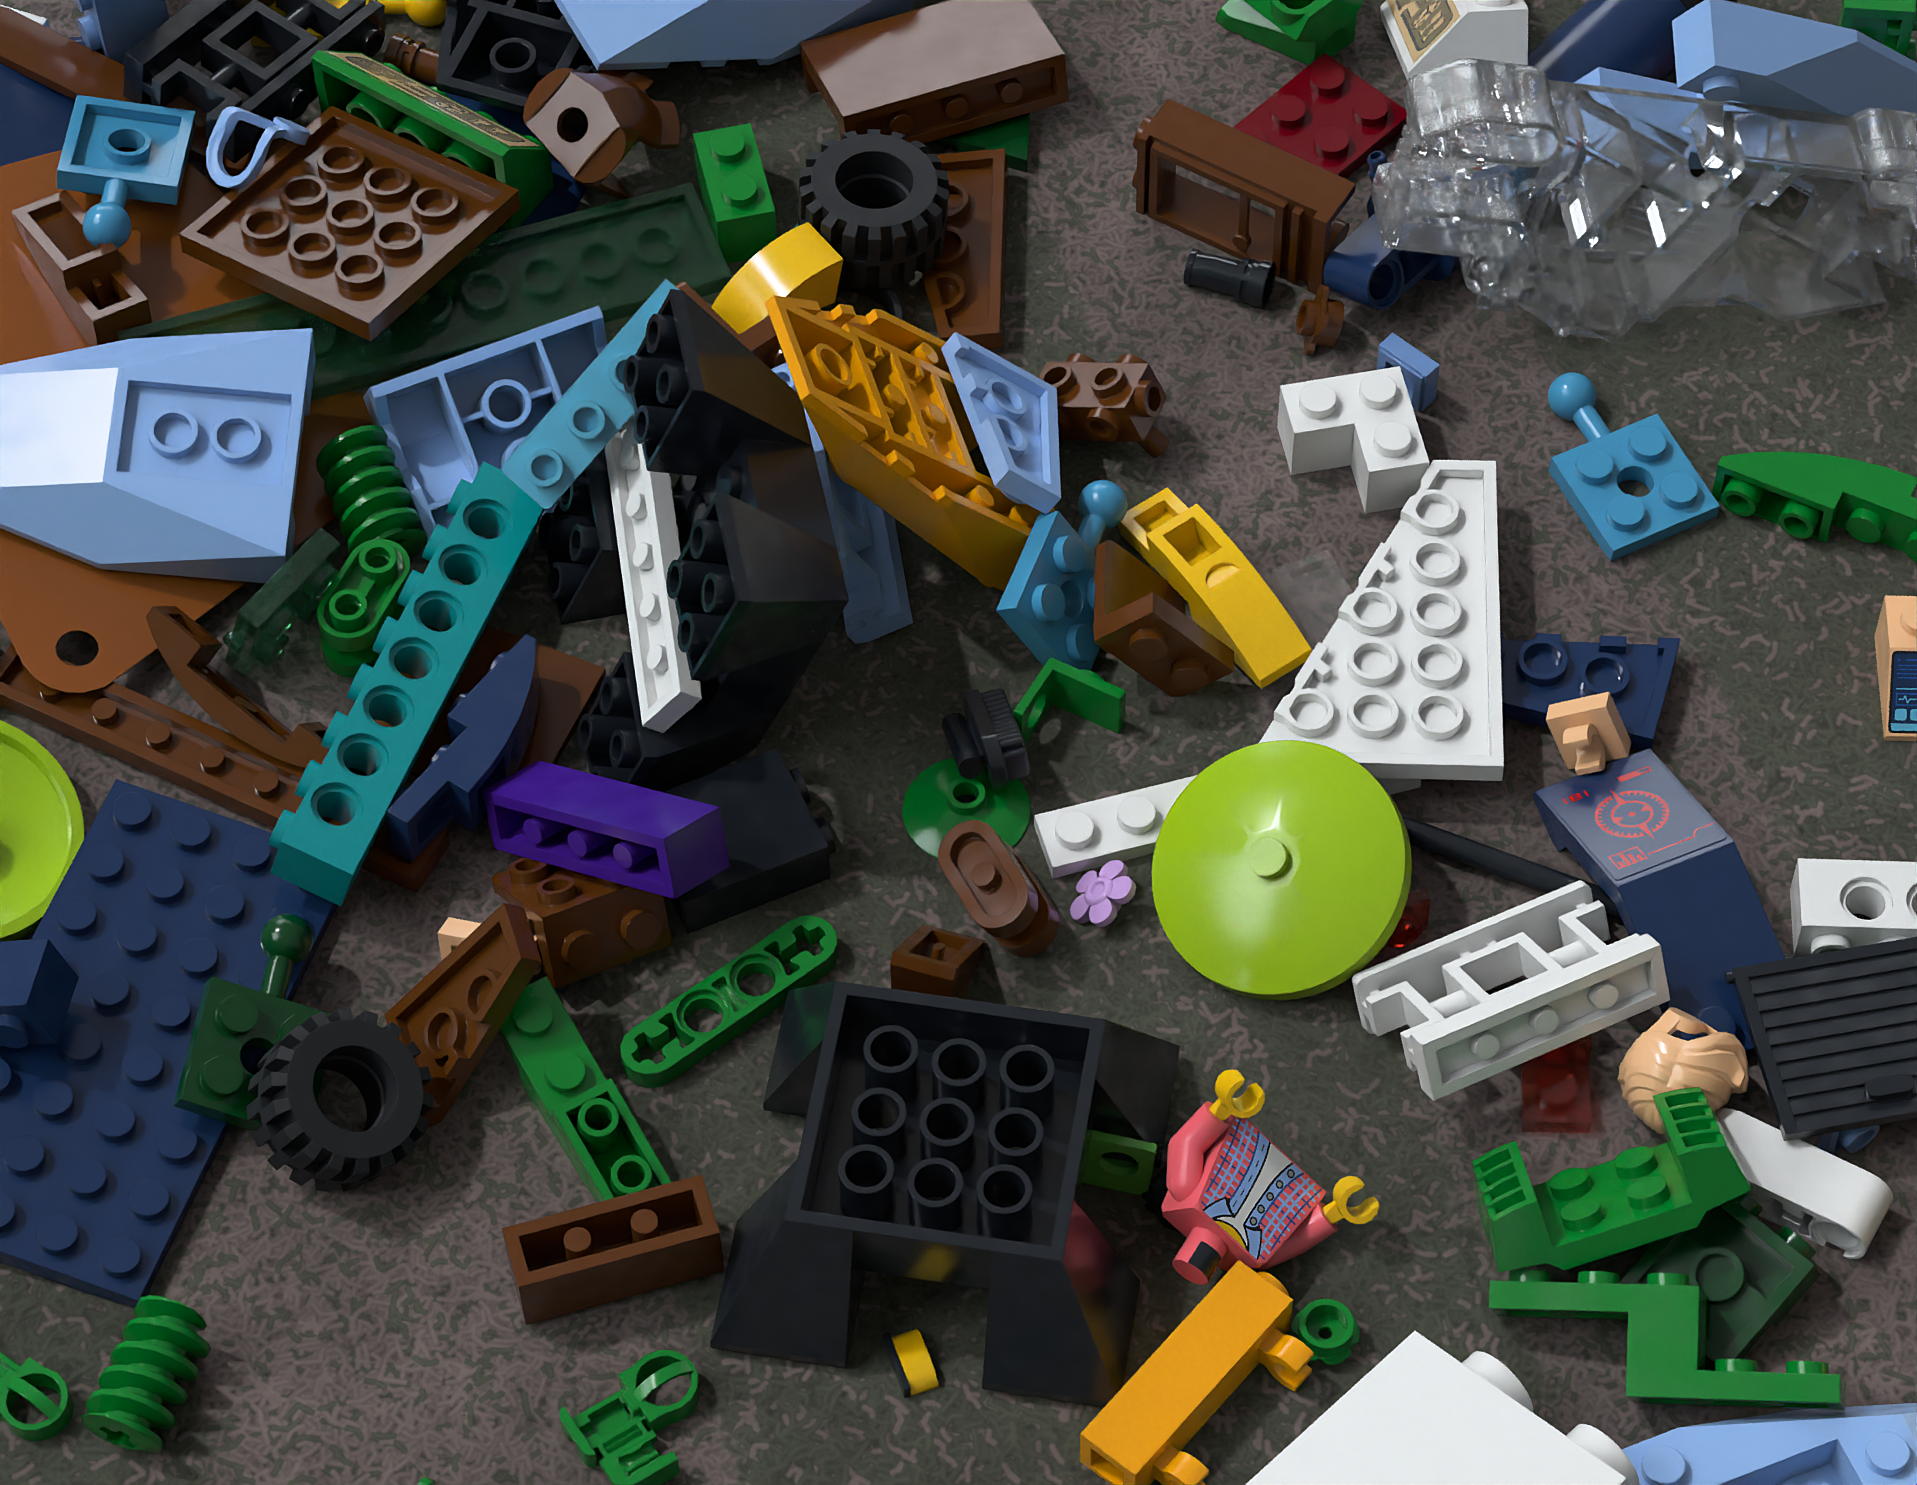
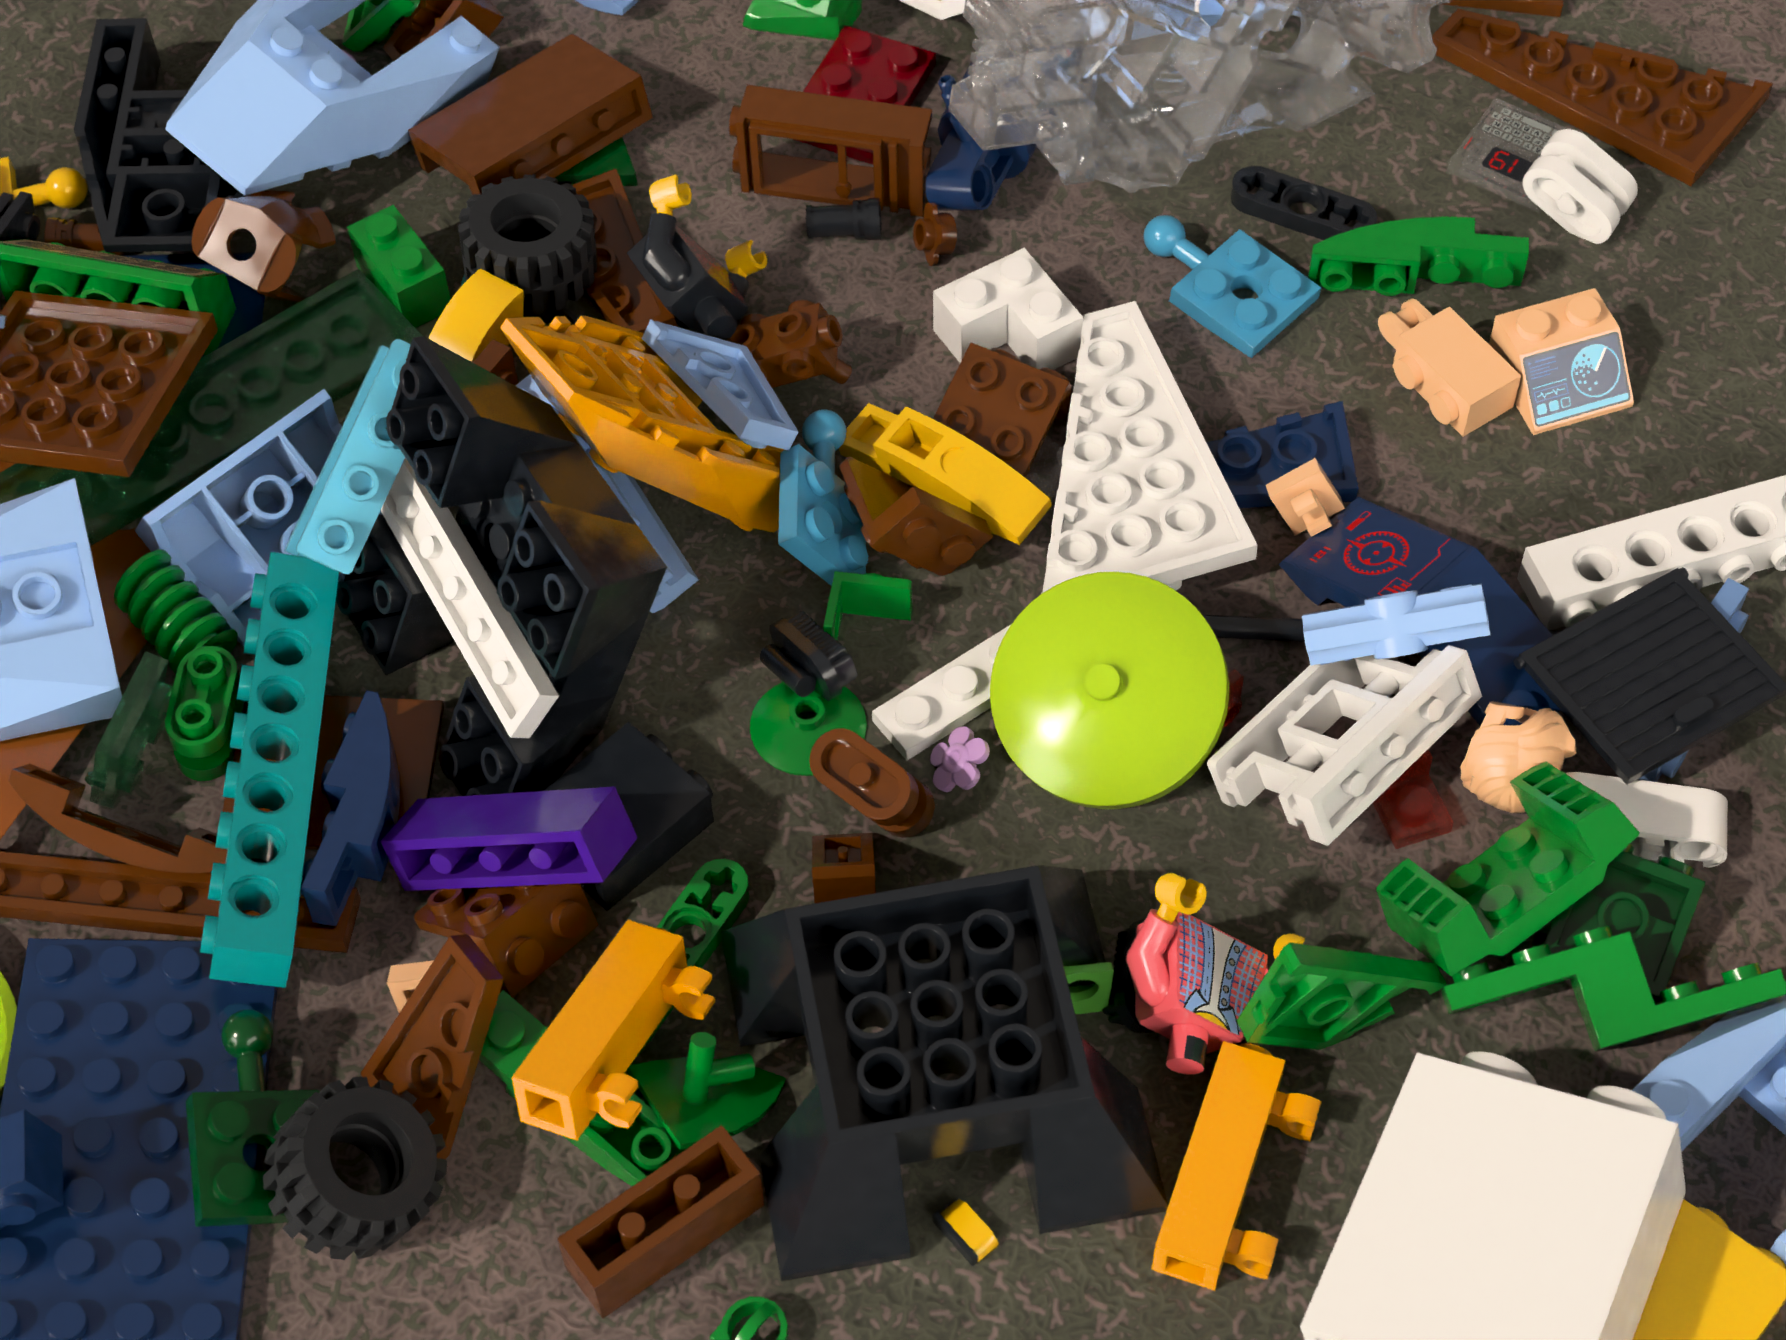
camera: 20 degrees left, 0 degrees up
(624, 1043) = (603, 1027): none -> light orange brick
(703, 1139) = (703, 1092): none -> green shield
(1026, 295) = (686, 275): none -> black torso
(1304, 534) = (1004, 404): none -> reddish brown bracket
(1330, 1316) = (1318, 1064): green plate -> none
(1360, 1249) = (1328, 994): none -> green wing
(1417, 369) = (1039, 246): medium blue tile -> none
(1604, 894) = (1396, 624): none -> light blue piece
(1735, 386) = (1293, 191): none -> black beam
(1818, 637) = (1449, 366): none -> light nougat brick

